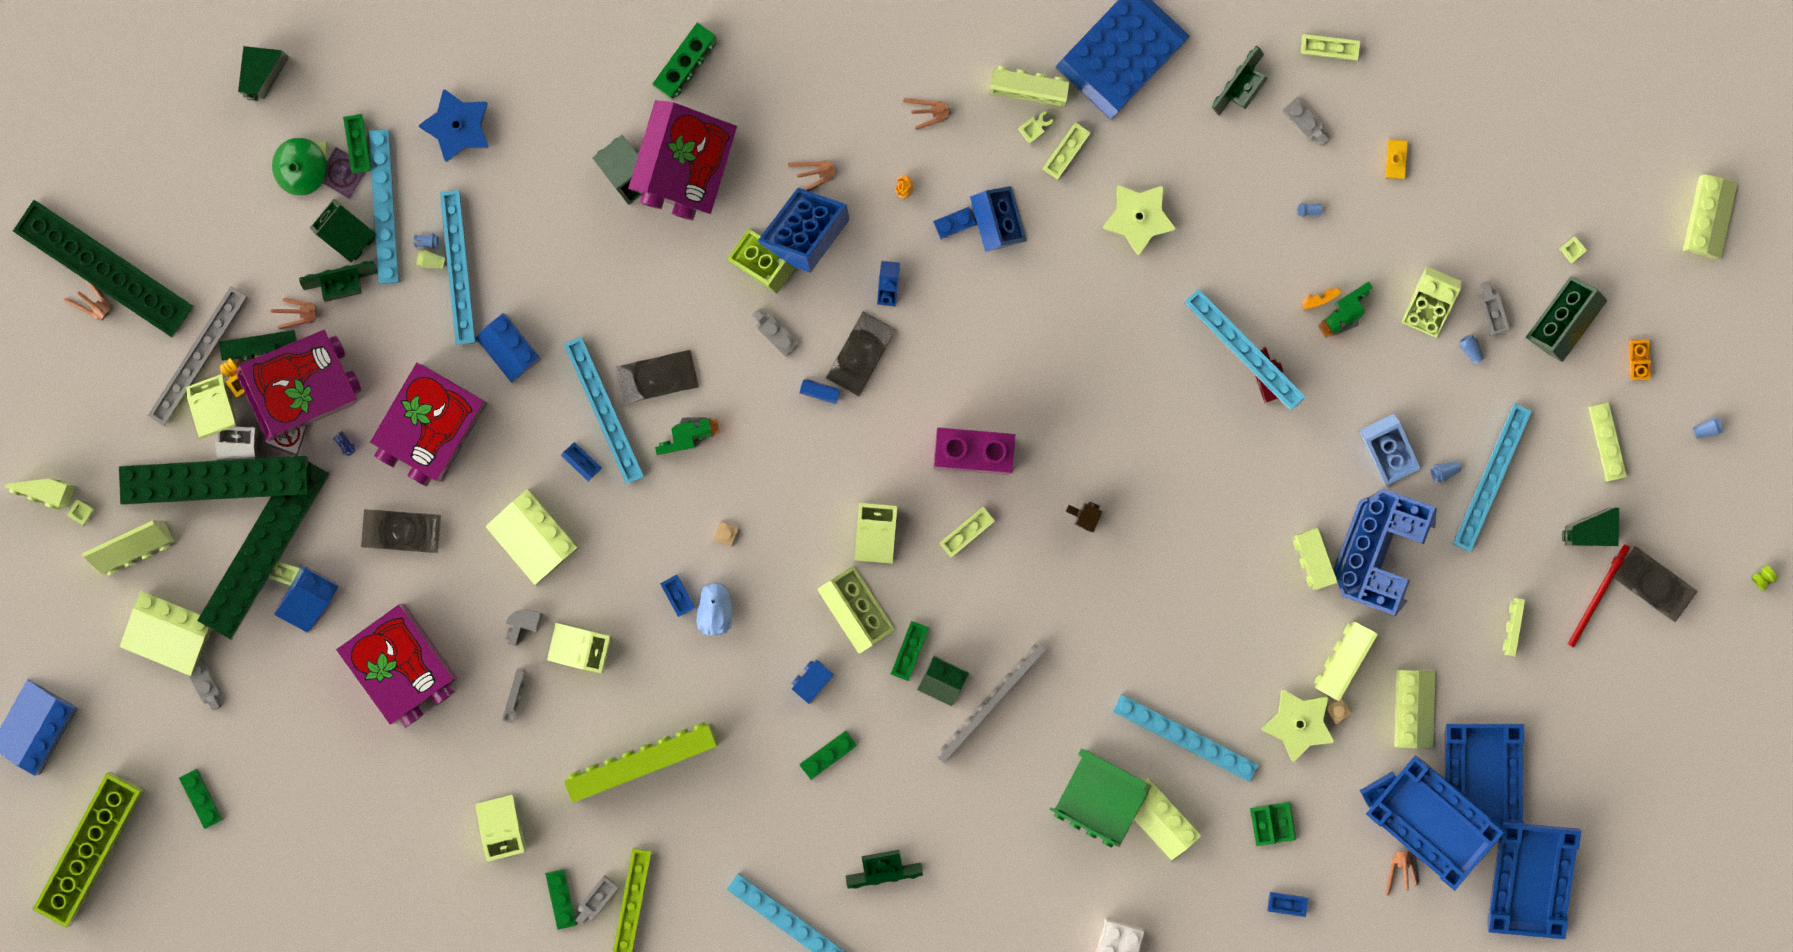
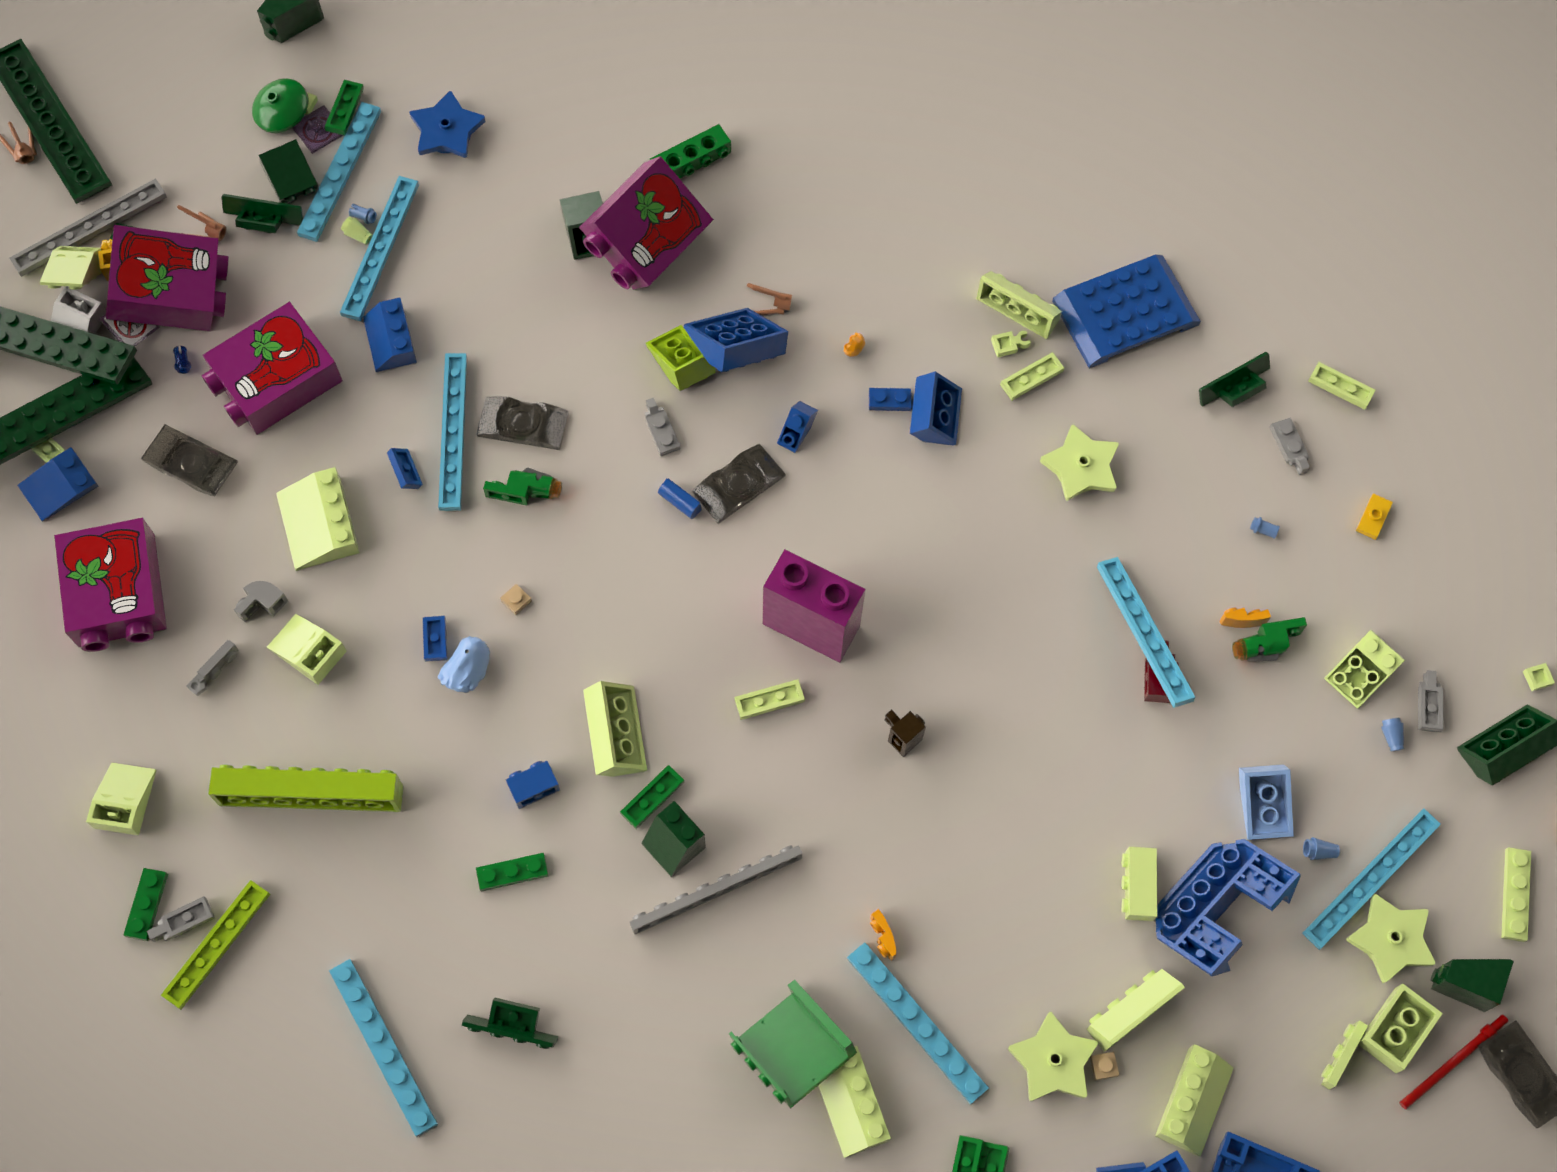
camera: 20 degrees right, 20 degrees down
(875, 533) = (672, 658): yellowish green slope -> none
(939, 111) = (919, 292): nougat plant -> none
(1138, 688) = (886, 941): none -> light orange slope
(1509, 523) = (1376, 938): none -> yellowish green plate
(1549, 590) = (1399, 1028): none -> yellowish green brick

